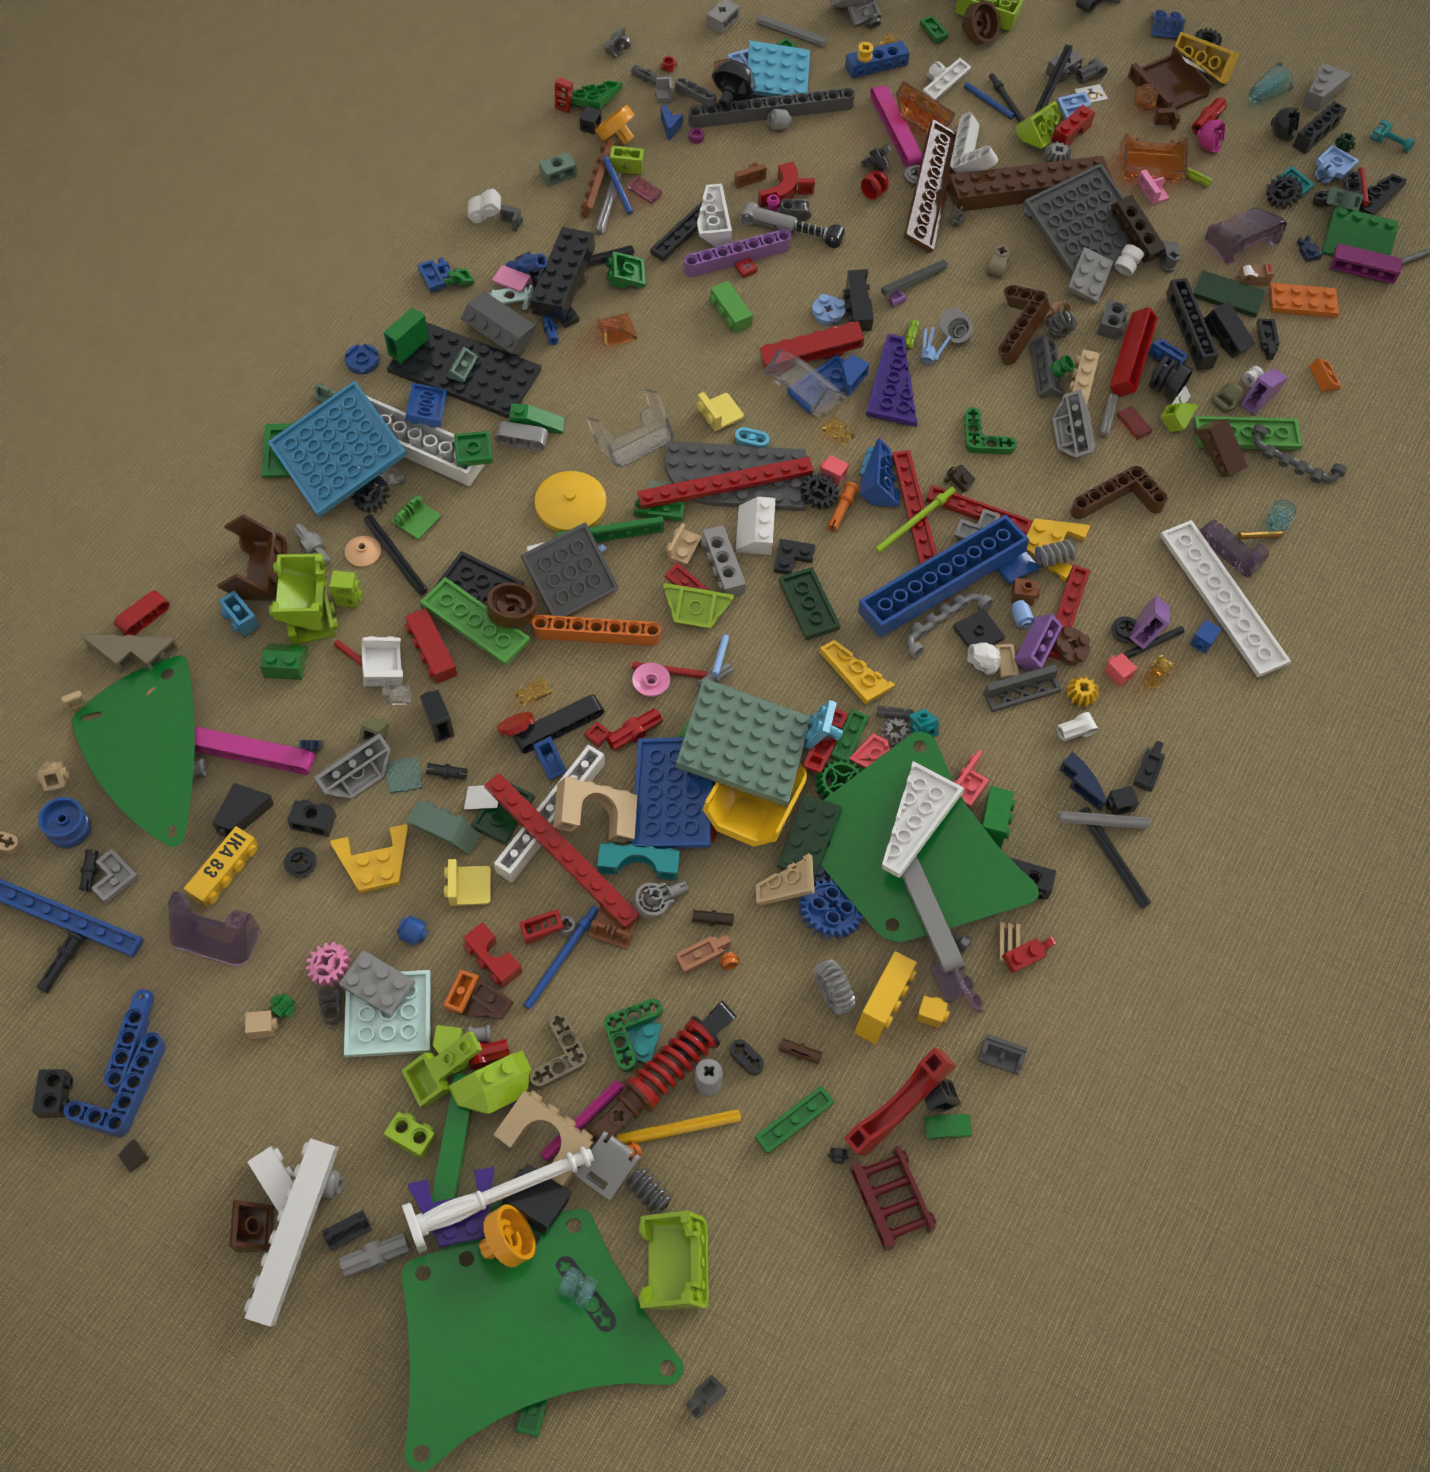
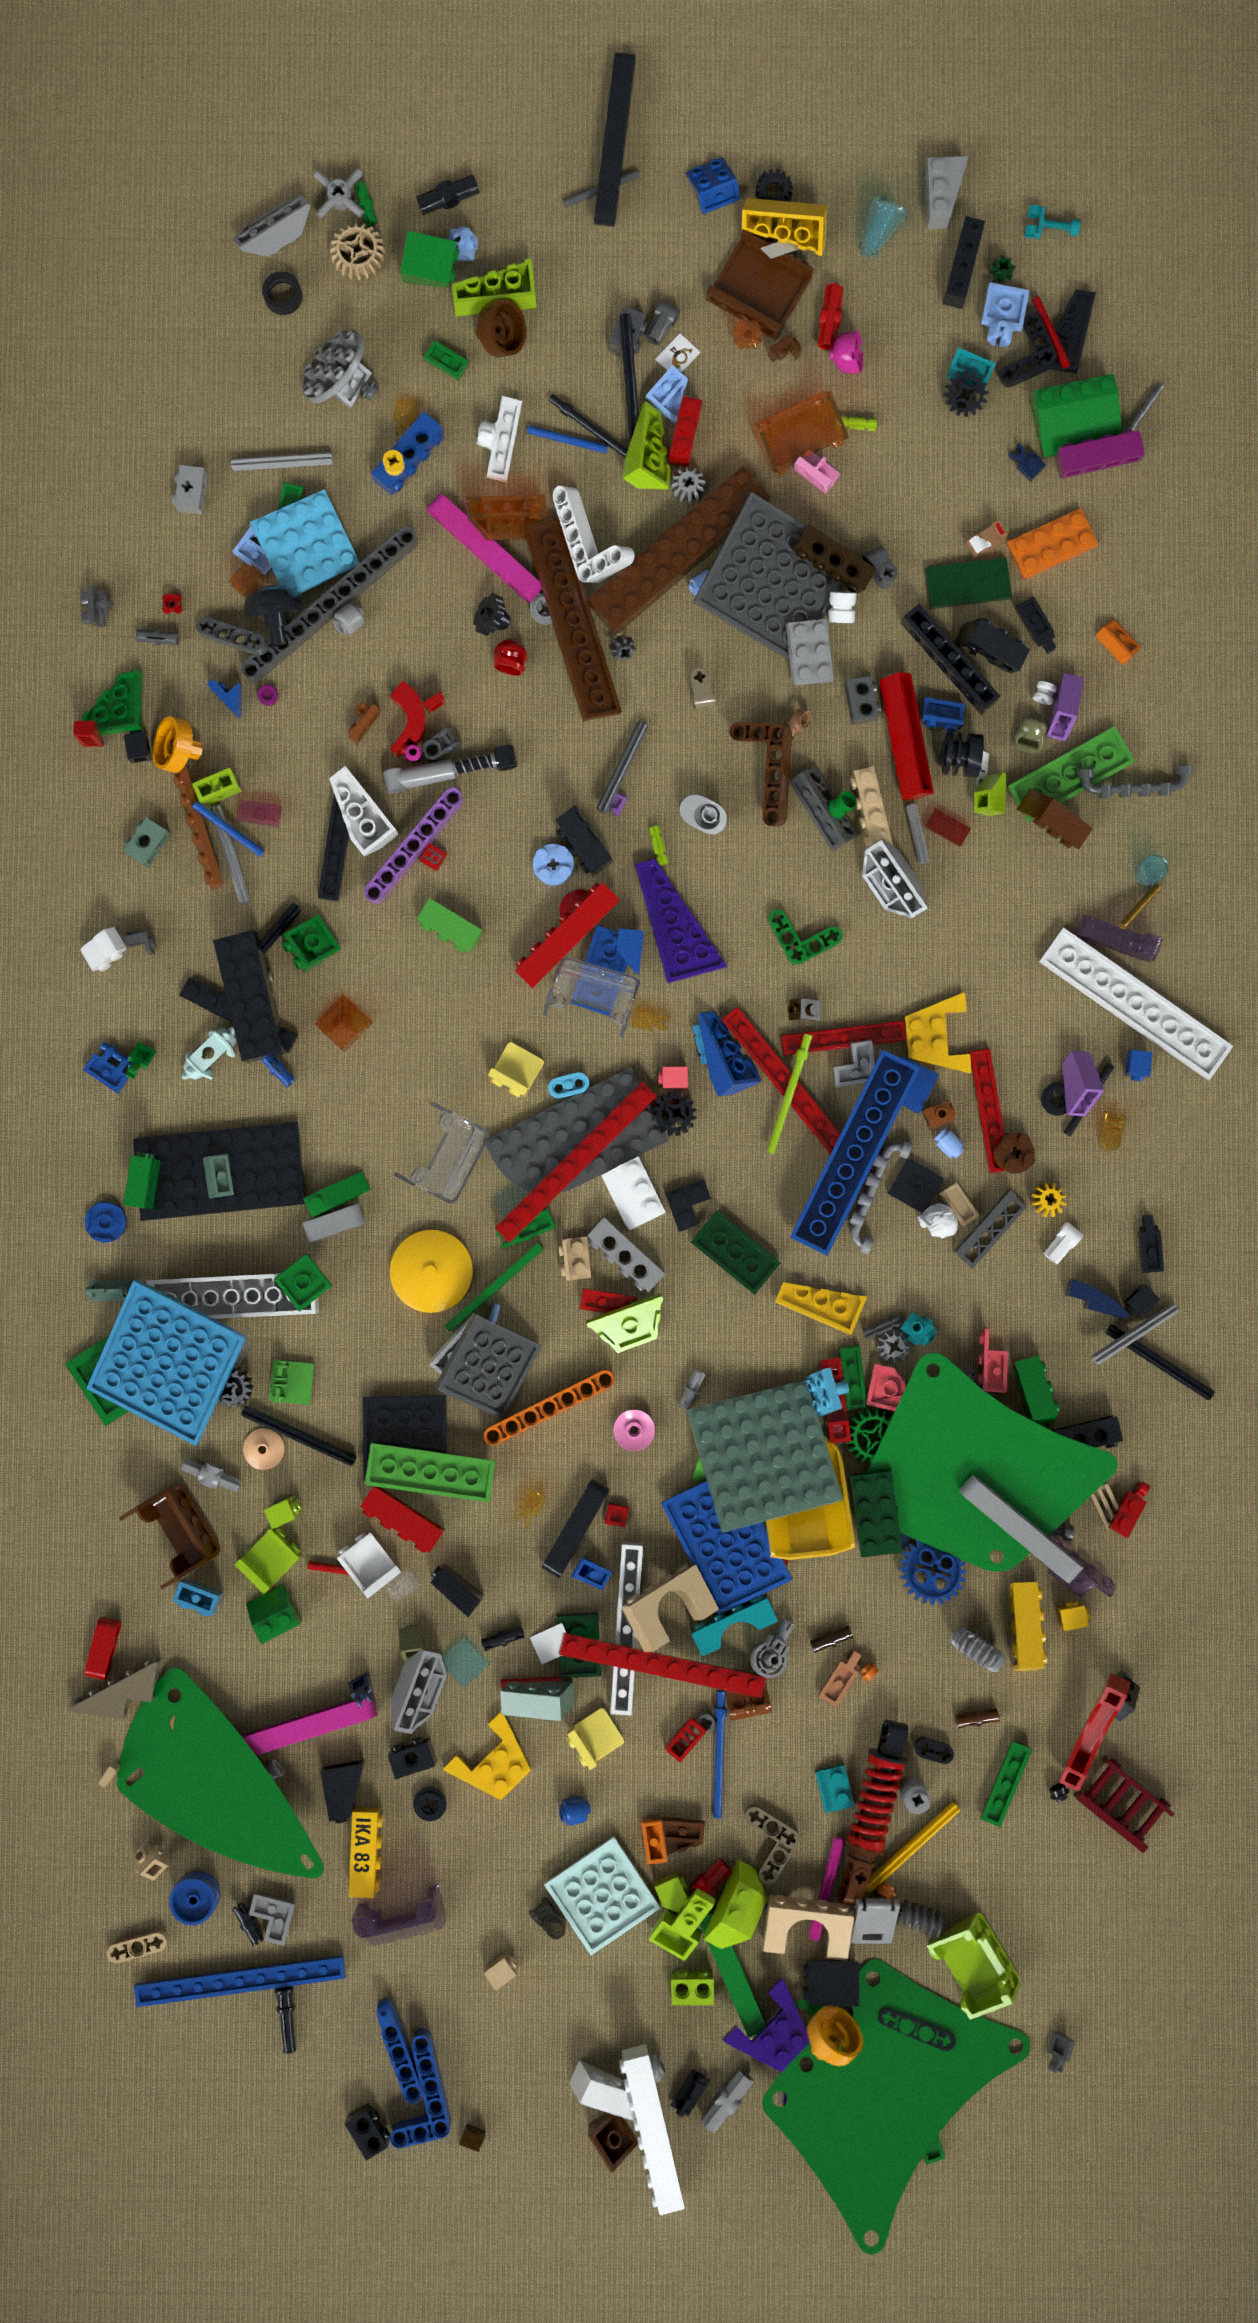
camera: 25 degrees left, 25 degrees up
(282, 1005) = (508, 1944): green gear -> none
(300, 590) = (244, 1545): lime windscreen -> none
(328, 964) = (513, 1882): bright pink gear -> none
(377, 983) = (577, 1879): light grey plate -> none
(426, 405) = (218, 1253): blue plate -> none
(468, 1205) = (781, 2040): white piece -> none
(482, 1034) = (694, 1867): light grey bush -> none
(499, 323) = (222, 1101): dark grey slope -> none
(501, 969) = (674, 1799): red arch -> none
(504, 607) = (443, 1445): reddish brown piece -> none
(512, 279) = (198, 1032): bright pink panel -> none
(515, 724) = (537, 1557): red tile -> none
(528, 263) = (204, 1009): blue piece -> none
(570, 1283) = (911, 2035): clear light blue wheel -> none
(621, 1029) = (814, 1793): green beam -> none
(634, 729) = (649, 1492): red piece -> none
(664, 89) = (193, 651): light grey panel -> none
(678, 671) = (646, 1404): red bar -> none
(720, 656) = (684, 1366): light blue bar -> none
(788, 884) = (883, 1573): tan wing -> none
(845, 500) = (705, 1106): orange pin -> none
(921, 810) = (971, 1439): white wing -> none
(928, 352) = (690, 864): light blue plant -> none
(948, 1126) = (1146, 1709): green slope -> none
(1002, 1054) = (1152, 1618): dark grey hinge -> none
(1038, 642) = (982, 1171): medium lavender brick -> none
(1055, 551) = (949, 1055): light grey piece -> none
(1062, 324) = (813, 743): dark grey gear -> none
(1120, 669) = (1073, 1152): coral brick -> none
(1132, 479) = (972, 932): reddish brown beam -> none
(1244, 230) = (949, 485): windscreen -> none
(1285, 123) = (922, 281): black cylinder -> none
(1344, 198) = (1040, 374): sand green brick -> none

